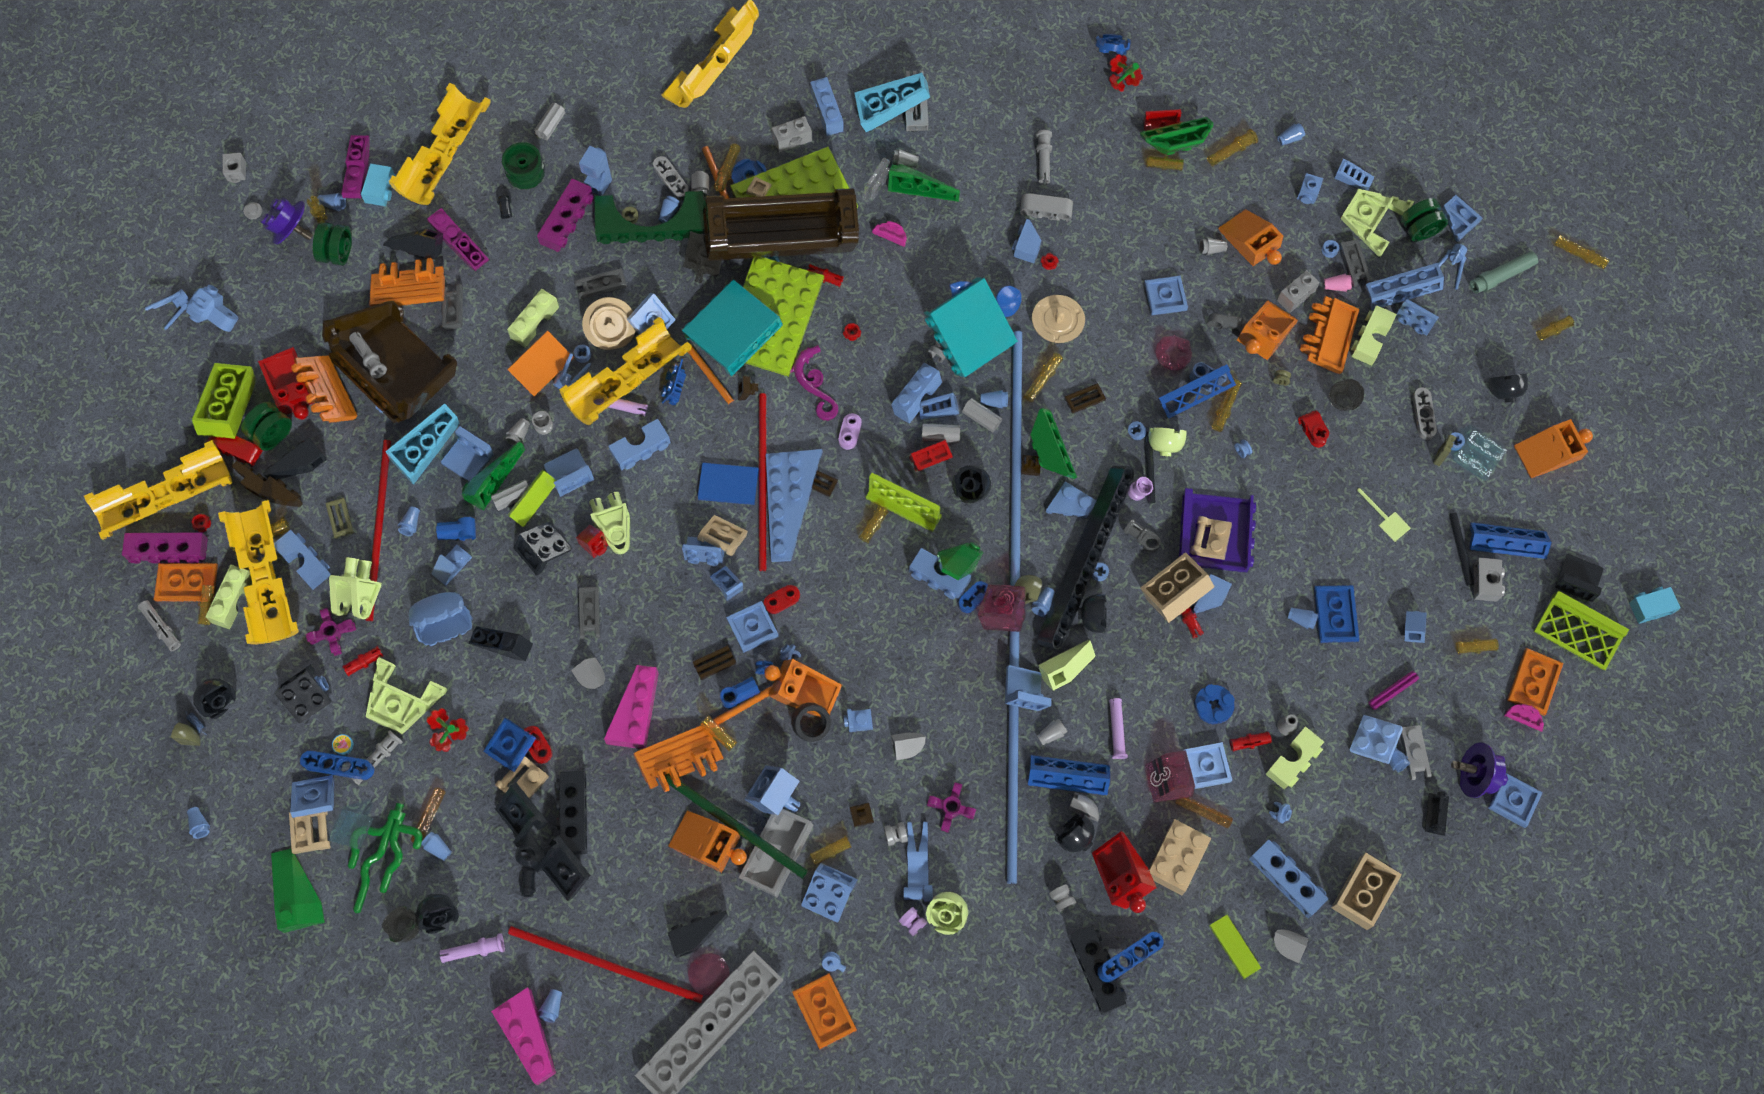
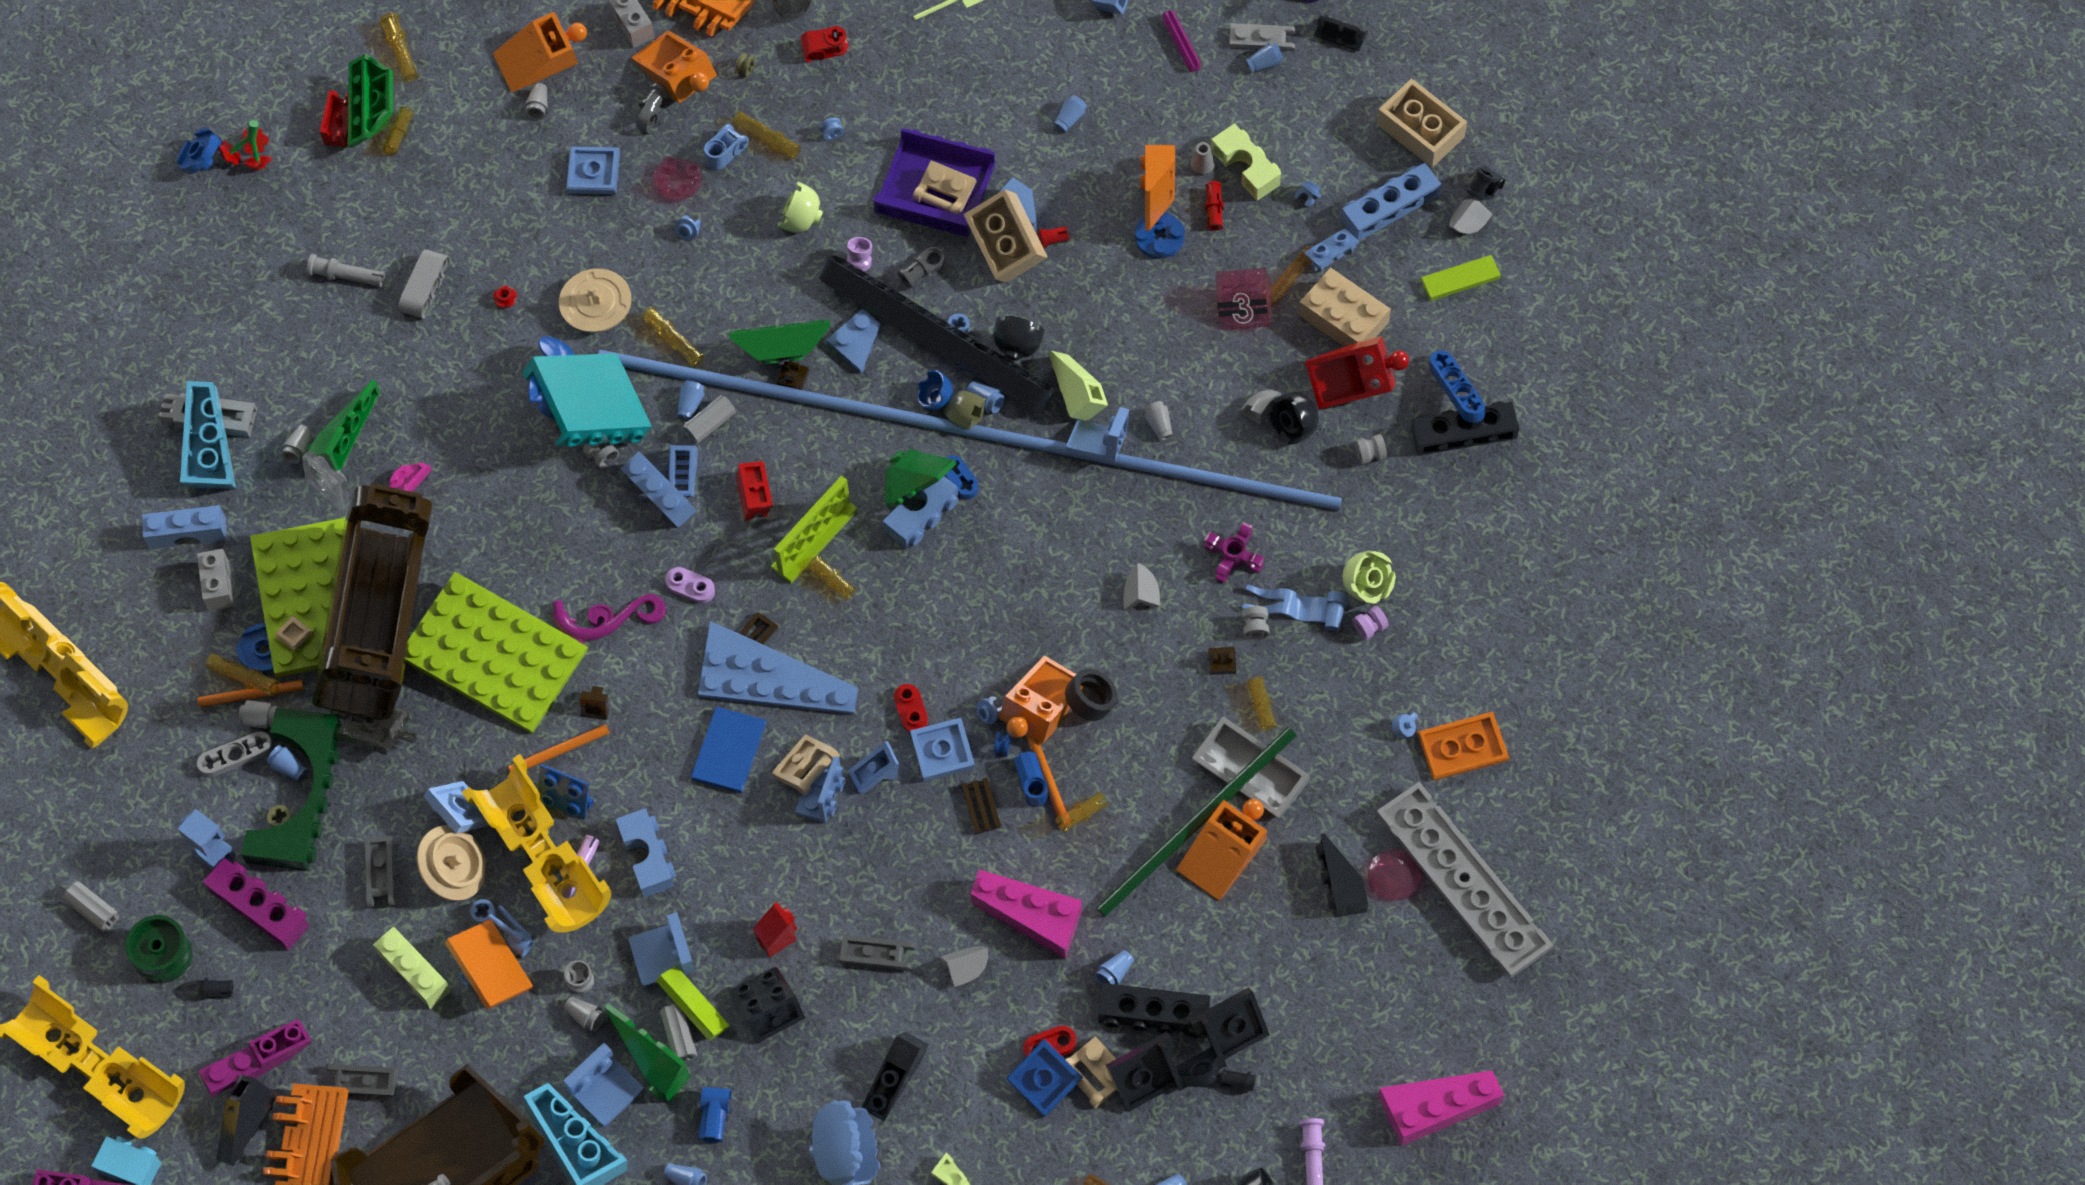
camera: 75 degrees left, 5 degrees down
(450, 565) = (764, 1129): medium blue slope -> none
(456, 729) = (1006, 1149): red plant -> none
(550, 1008) = (1404, 1070): medium blue cone -> none
(600, 779) = (1115, 968): none -> medium blue cone
(605, 964) = (1359, 1000): red piece -> none
(612, 522) = (758, 893): yellowish green piece -> none
(676, 757) = (1105, 870): orange hinge -> none
(732, 327) = (499, 701): teal panel -> none
(762, 482) = (740, 707): red piece -> none
(773, 791) = (1175, 752): medium blue brick -> none
(828, 892) = (1316, 713): medium blue bracket -> none
(829, 277) = (457, 565): red pin -> none
(849, 328) = (539, 552): red plate -> none
(858, 720) = (1097, 642): medium blue bracket -> none
(940, 432) = (721, 473): light grey axle -> none
(971, 484) = (808, 445): black cylinder -> none
(1003, 608) = (987, 439): clear pink slope -> none
(1028, 243) = (472, 315): medium blue slope -> none
(1038, 564) = (937, 385): none -> blue hair
(1069, 777) = (1222, 412): blue fence -> none
(1088, 404) = (717, 313): dark brown tile -> none
(1117, 729) = (1169, 347): lavender pin -> none
(1133, 367) = (687, 228): none -> medium blue plate
(1138, 435) = (784, 242): medium blue bush -> none
(1150, 468) = (821, 239): black bar -> none
(1193, 385) = (737, 161): blue fence -> none
(1209, 765) = (1234, 252): light blue plate -> none
(1233, 837) = (1334, 246): none -> medium blue hinge
(1252, 691) = (1157, 181): none -> orange slope
(1323, 951) = (1485, 183): none -> black piece
(1336, 614) = (1067, 75): blue tile -> none
(1376, 739) = (1239, 71): light blue plate -> none

